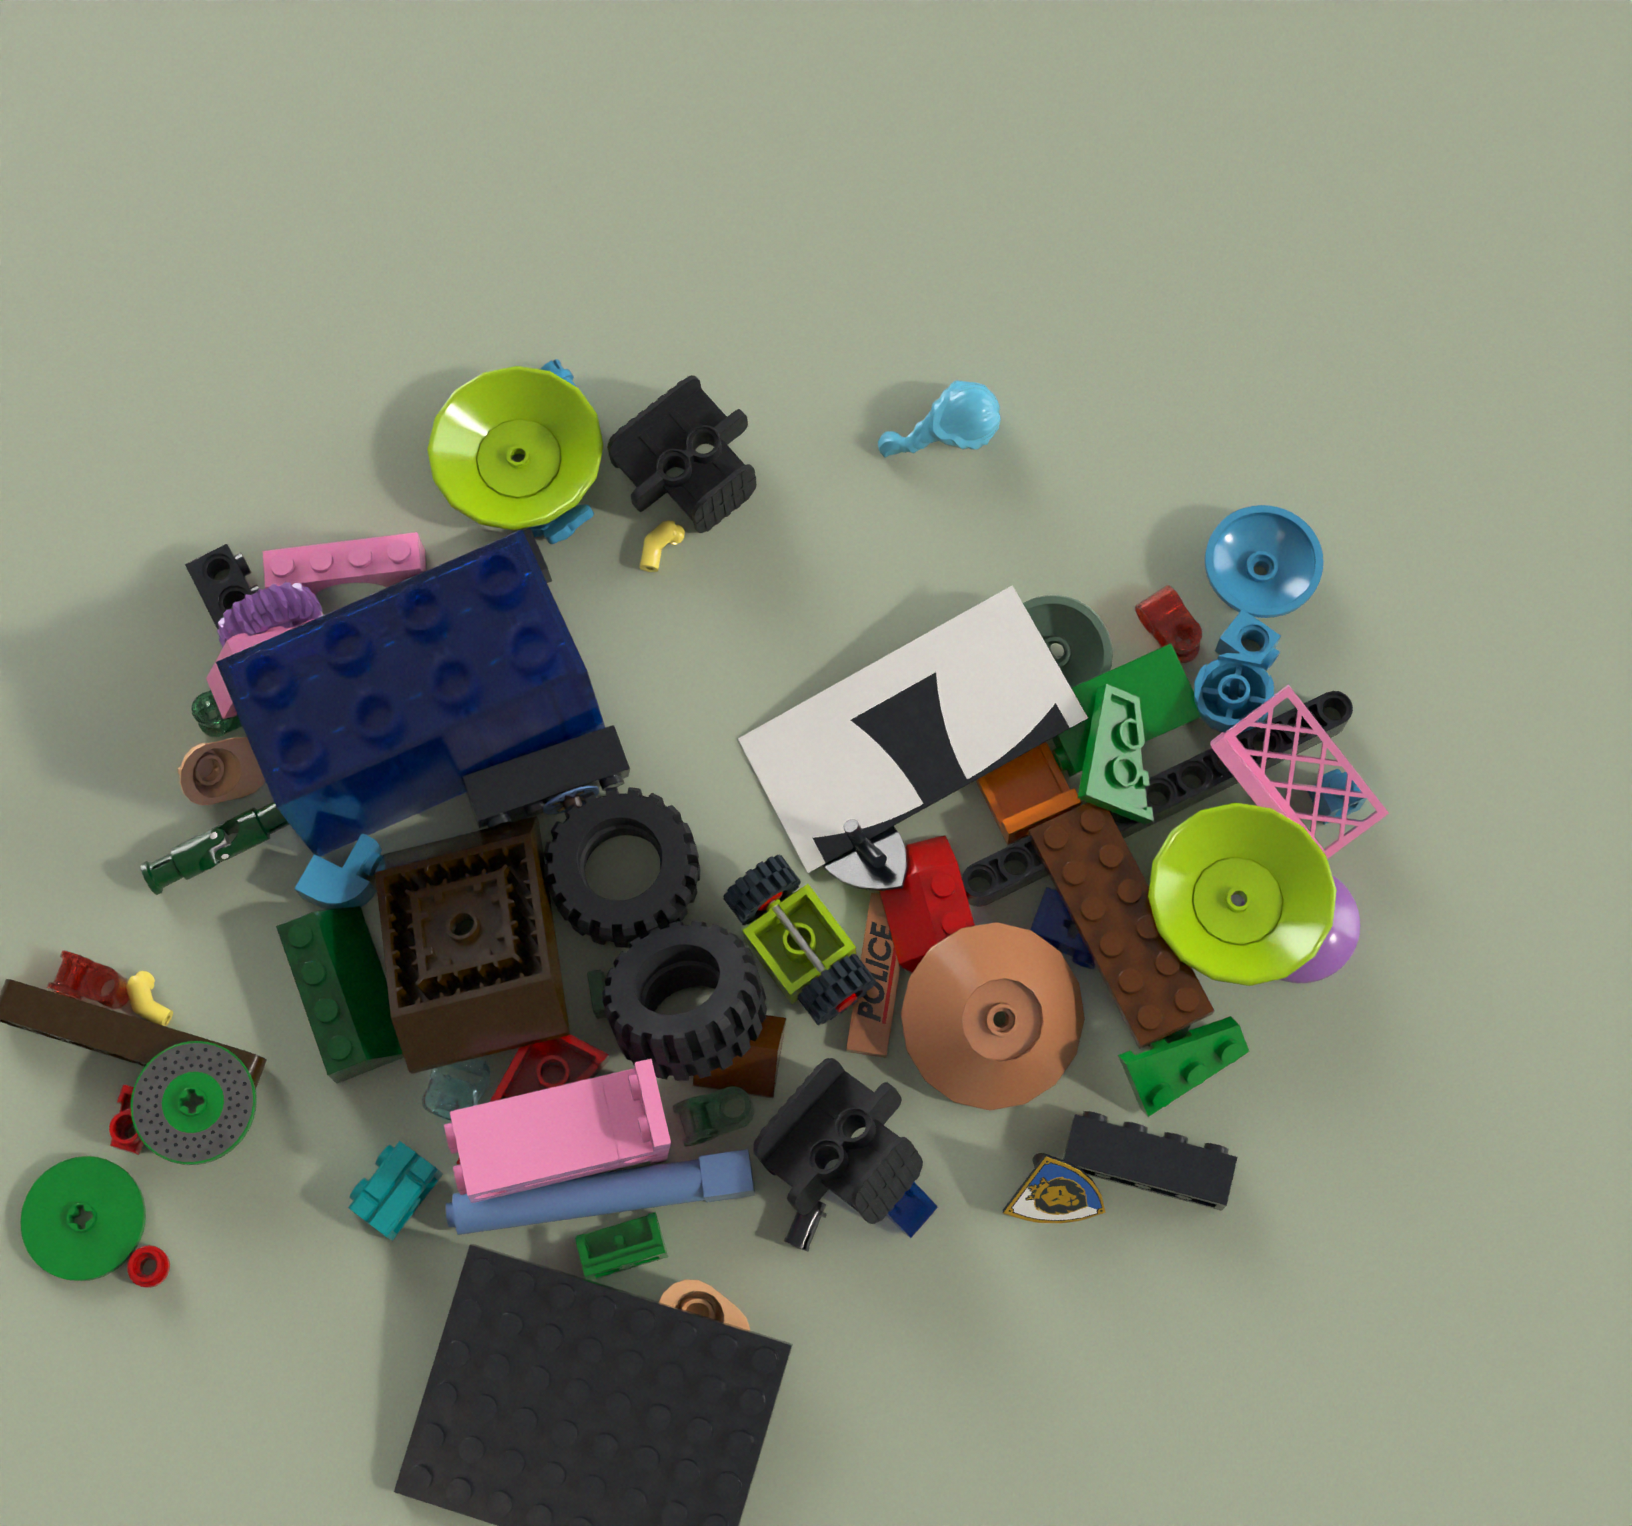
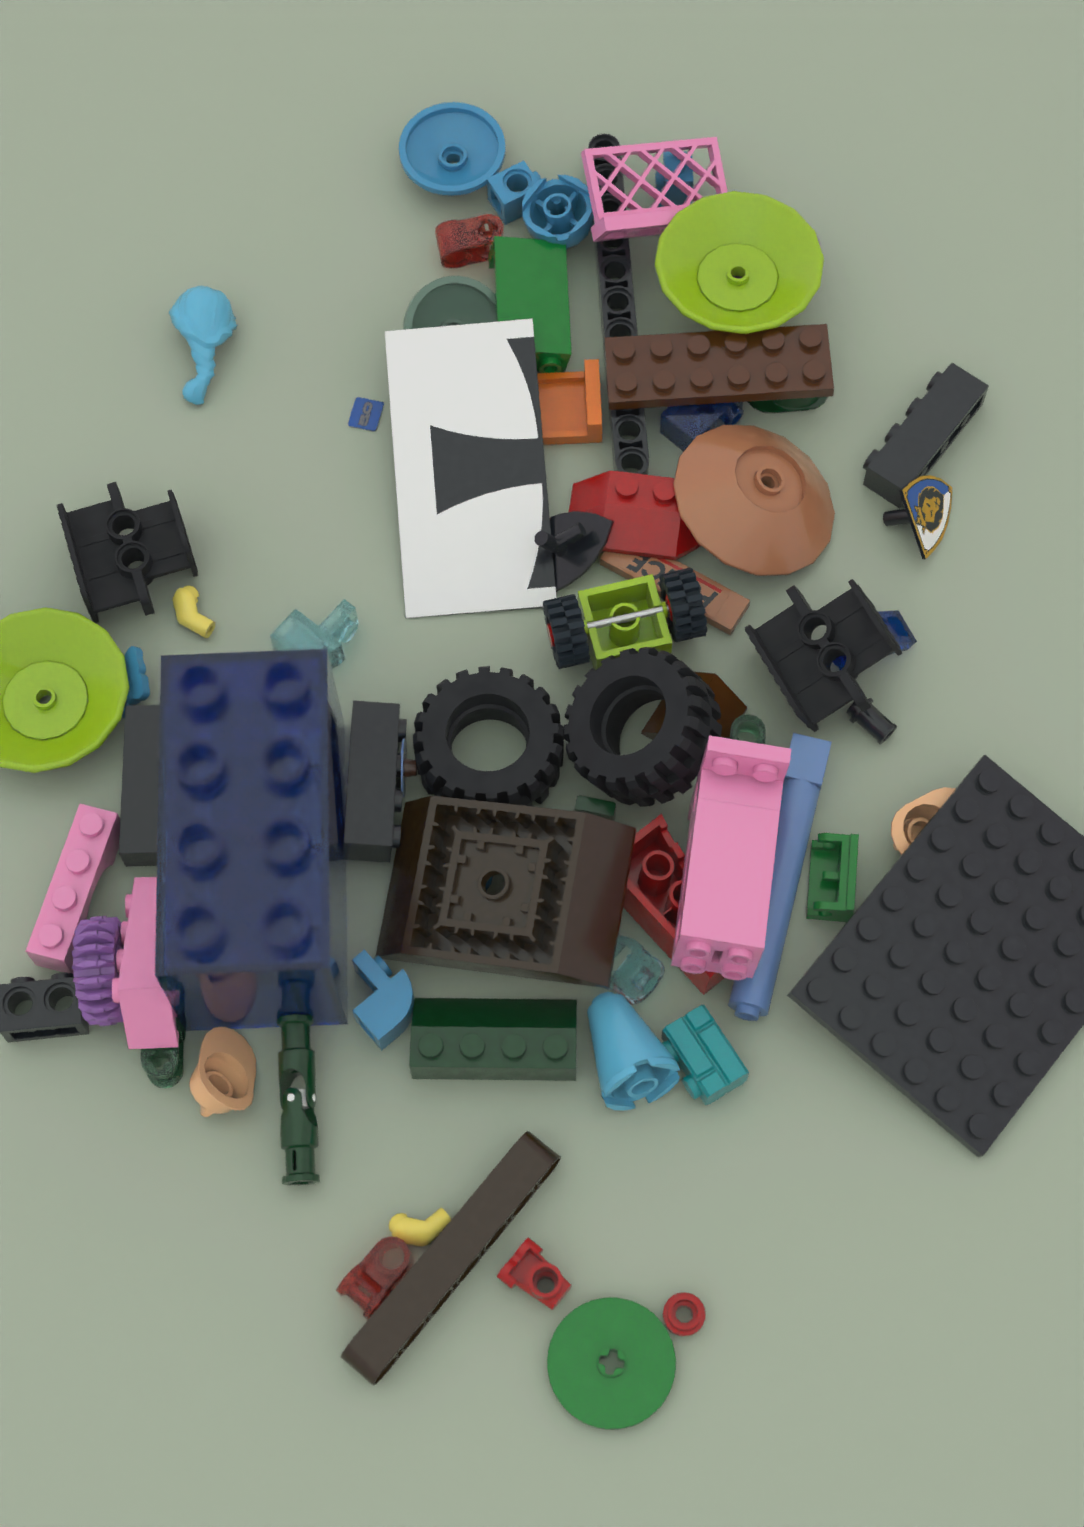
camera: 70 degrees left, 5 degrees down
(169, 1081) = (566, 1233): flat silver piece -> none
(368, 1116) = (628, 1054): none -> medium azure cone
(666, 666) = (301, 633): none -> clear light blue brick
(939, 608) = (365, 414): none -> blue sticker
(1113, 757) = (586, 317): wing -> none
(1179, 1066) = (855, 375): green wing -> none

